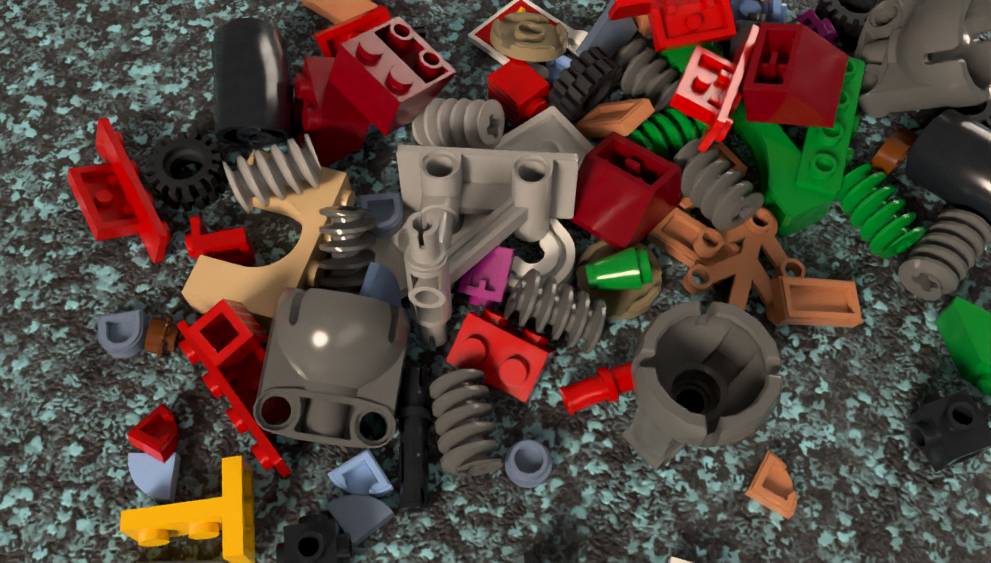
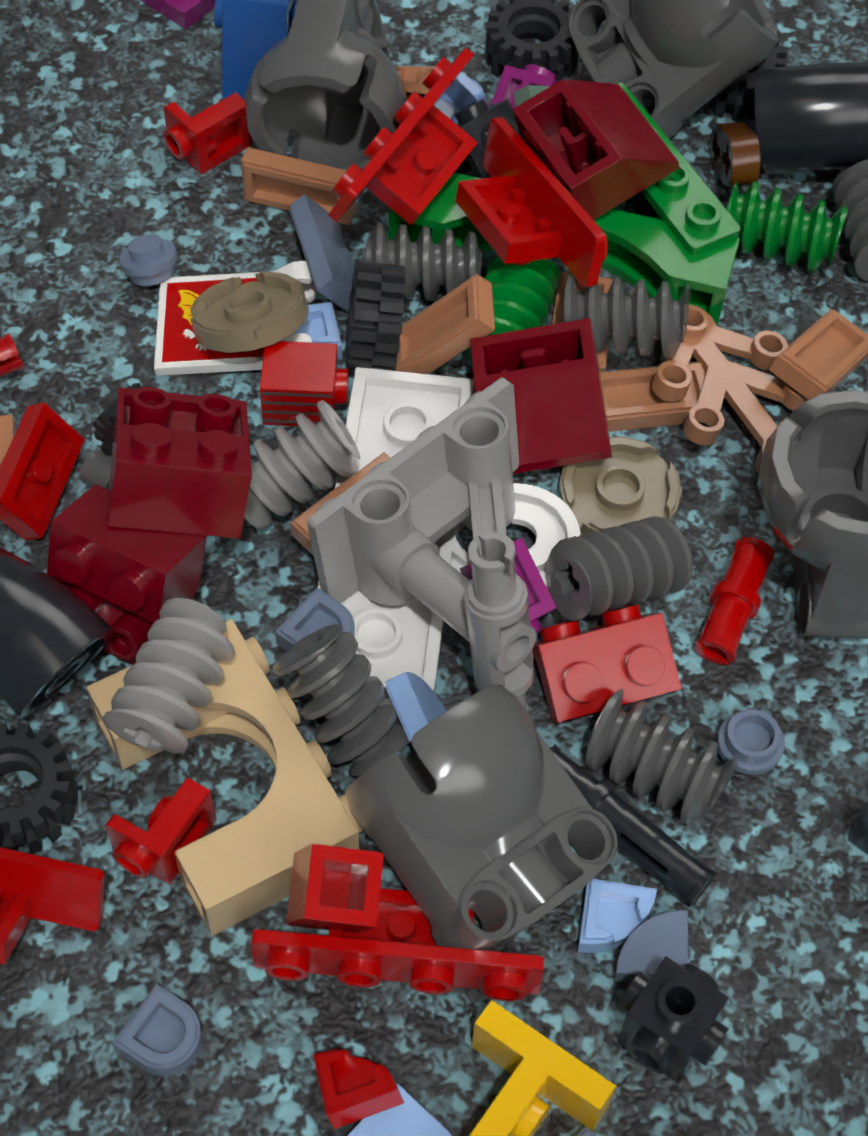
camera: 50 degrees left, 5 degrees down
(162, 336) = (221, 989): reddish brown plate -> none
(620, 271) = (631, 475): green cone -> none

